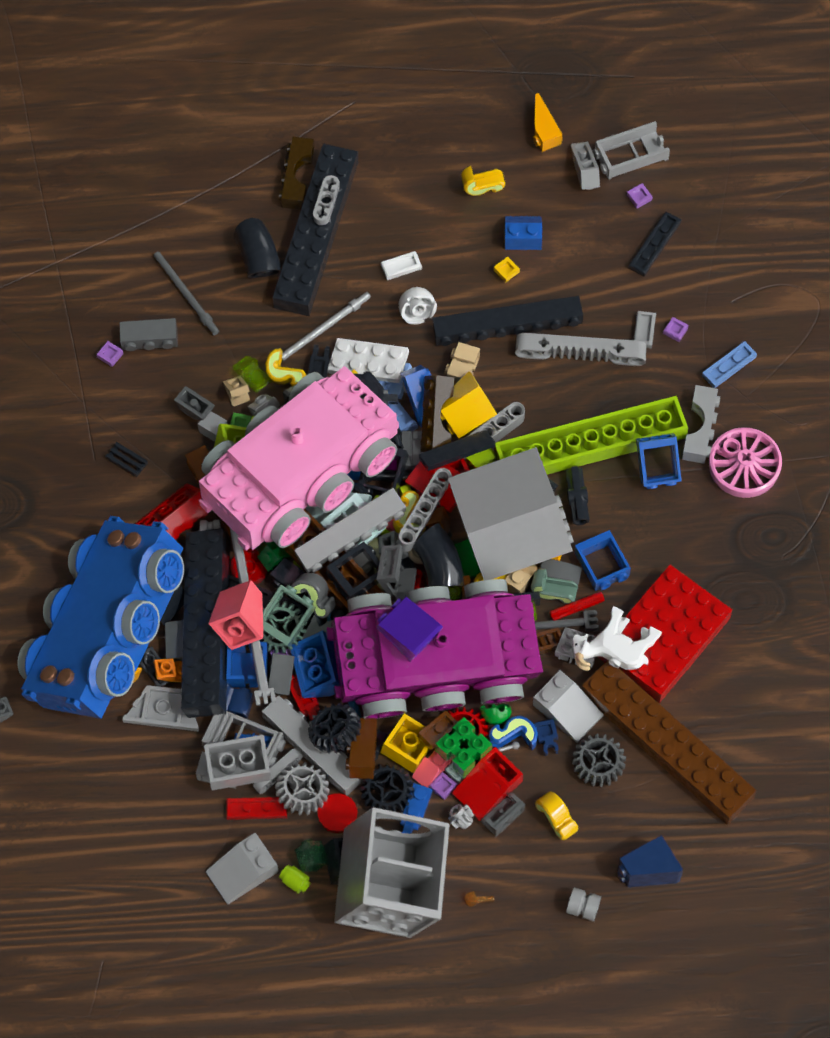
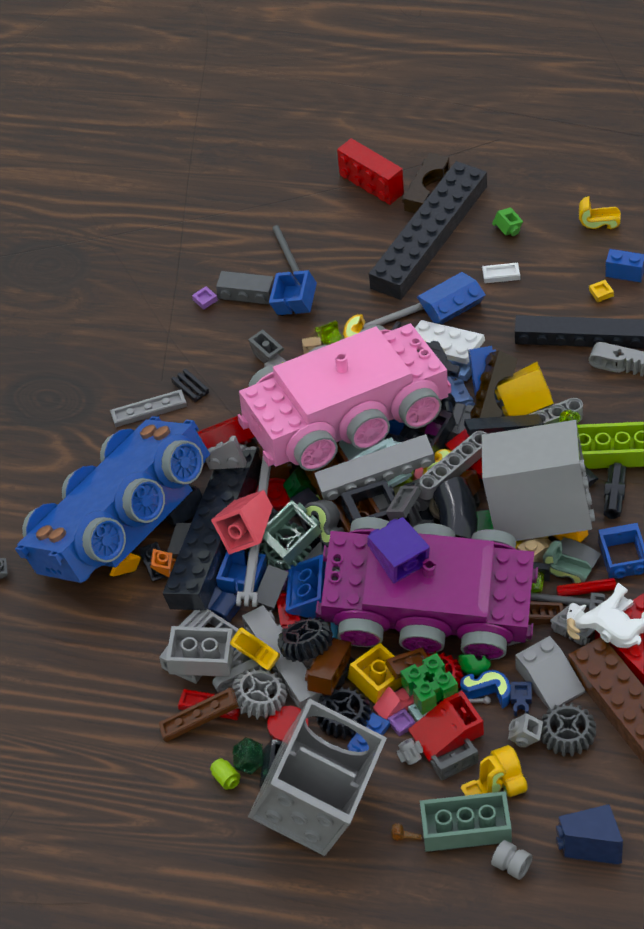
camera: 20 degrees right, 15 degrees down
(92, 494) = (148, 408): none -> light grey tile
(160, 708) = (145, 597): light grey wing -> none
(197, 546) = (226, 455): none -> light grey wing
(200, 336) = (289, 295): none -> blue piece
(237, 171) = (370, 171): none -> red brick
(242, 868) = (177, 754): light grey slope -> none
(253, 823) = (198, 714): none -> reddish brown tile
(257, 248) = (367, 234): black brick -> none
(290, 748) = (255, 648): none -> yellow animal
(328, 208) = (432, 214): light grey beam -> none
(362, 308) = (451, 298): none -> blue slope
(393, 205) = (508, 221): none -> bright green brick
(417, 305) = (504, 304): white cylinder -> none
(463, 360) = (536, 352): tan piece -> none
(516, 428) = (567, 414): none -> clear neon green cone
(532, 876) = (465, 821): none -> sand green brick
(541, 834) = (489, 778): none -> yellow animal
(561, 771) = (525, 730): none -> light grey brick

